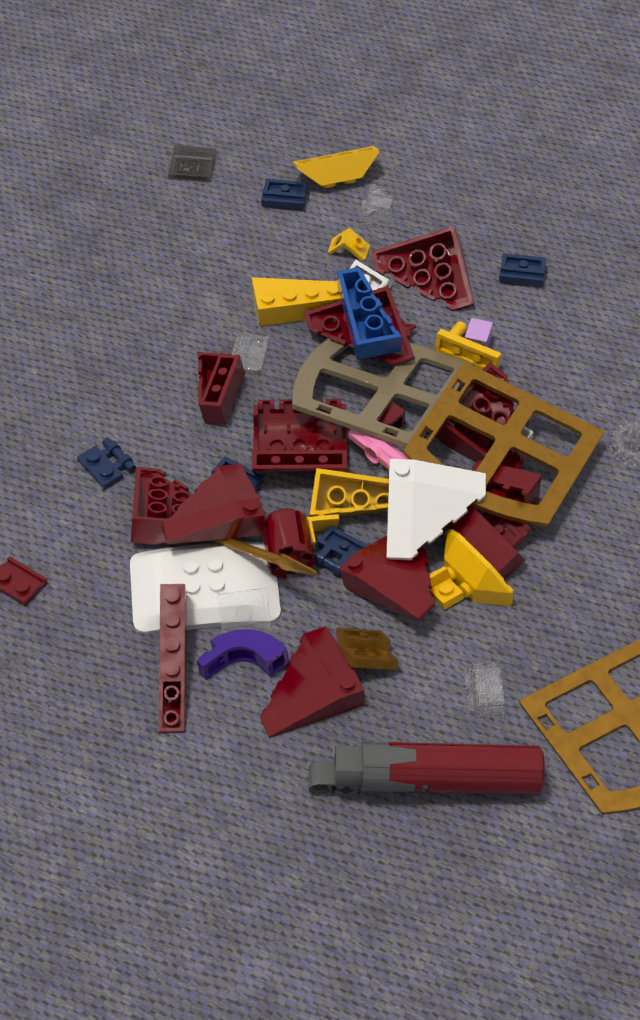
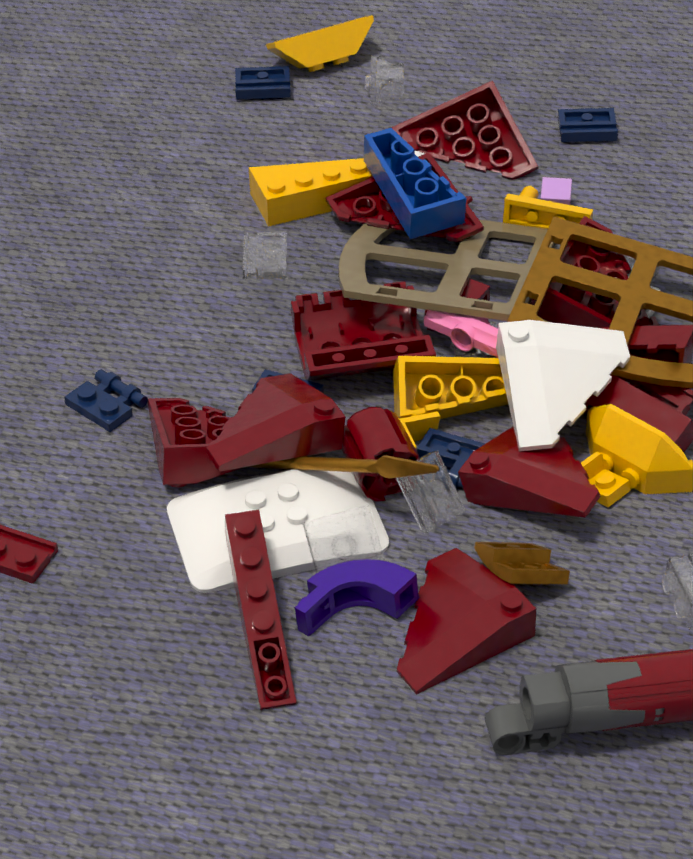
camera: 10 degrees left, 10 degrees down
(192, 163) = (135, 66): clear smoke tile -> none
(218, 385) = (237, 289): dark red wedge -> none
(319, 588) = (431, 495): none -> clear plate
(351, 242) = (359, 115): yellow bracket -> none

